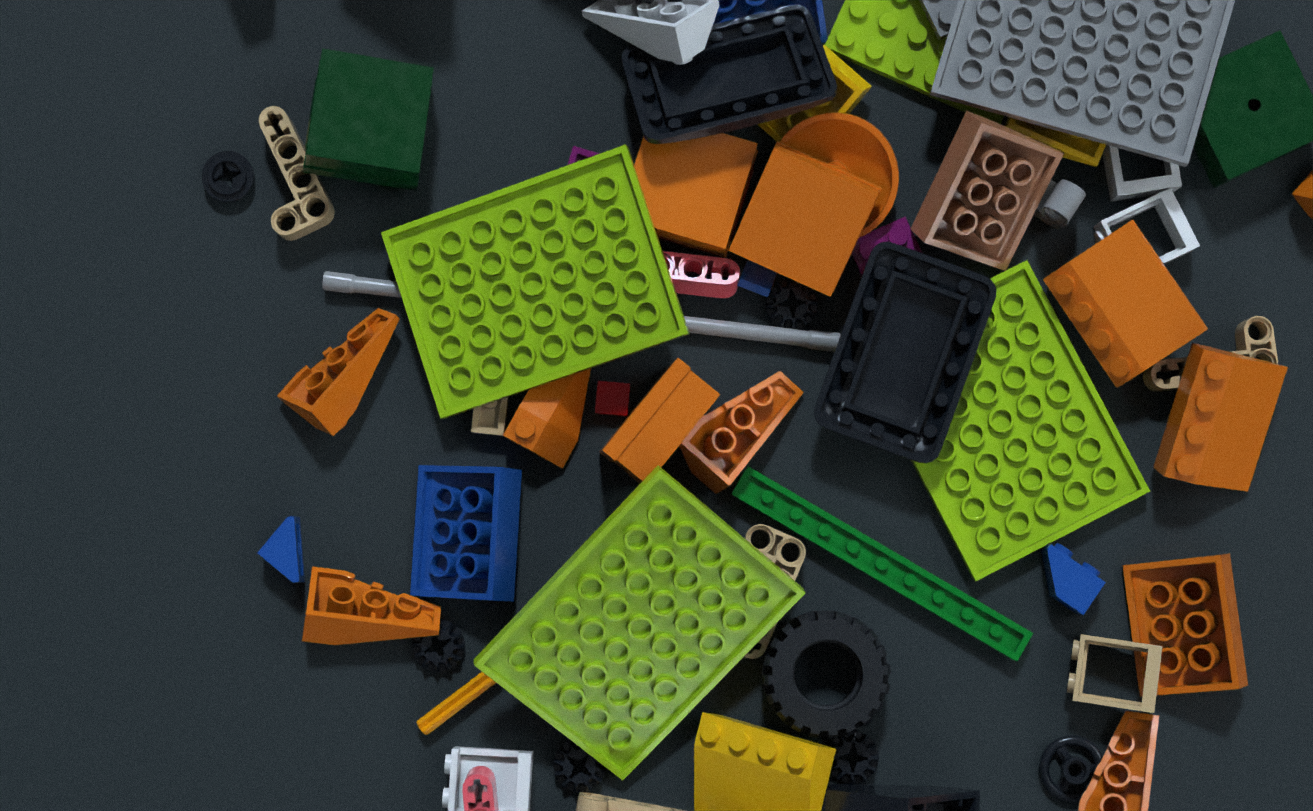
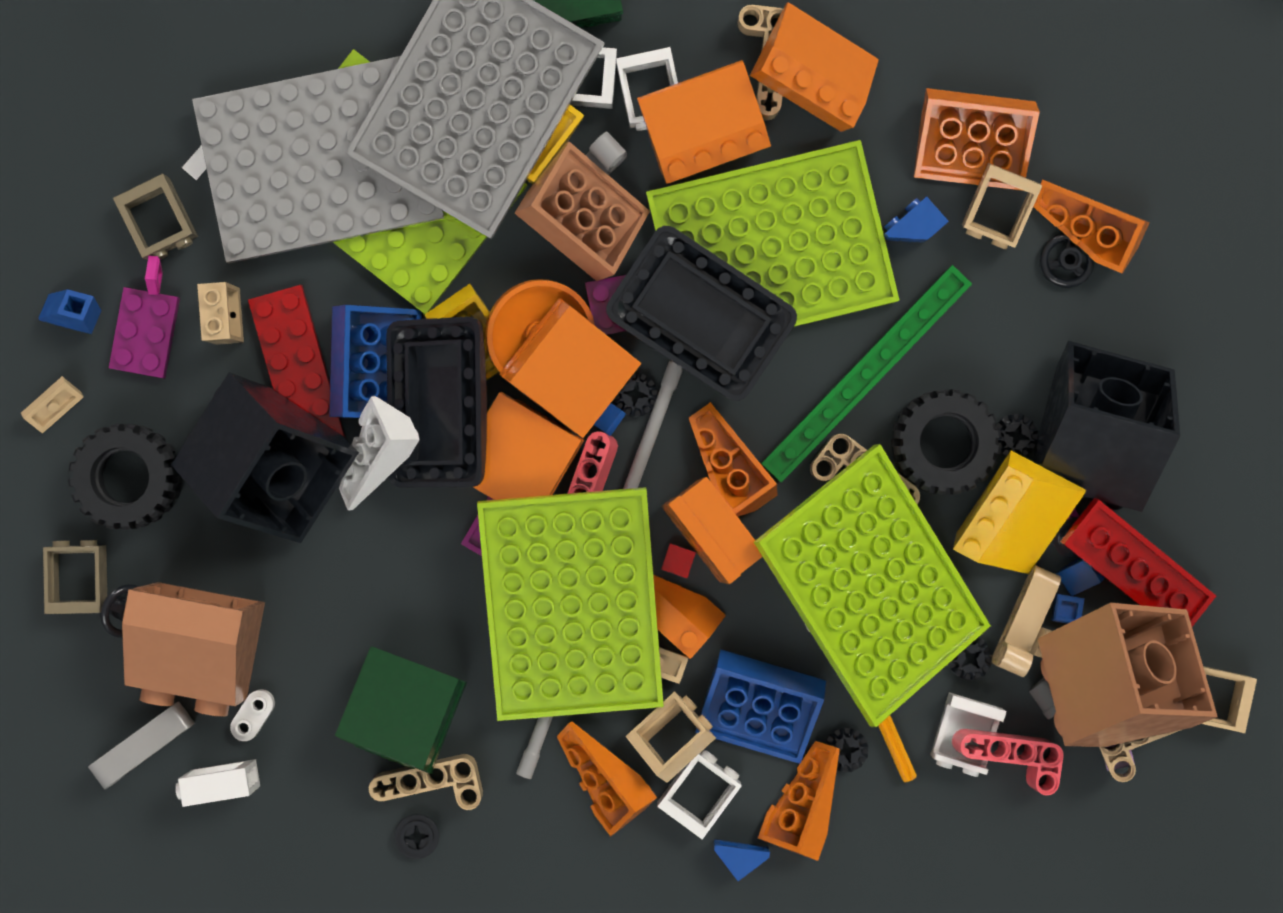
camera: 75 degrees left, 5 degrees up
(319, 473) = (682, 815): none -> white window
(420, 415) = (656, 721): none -> tan window

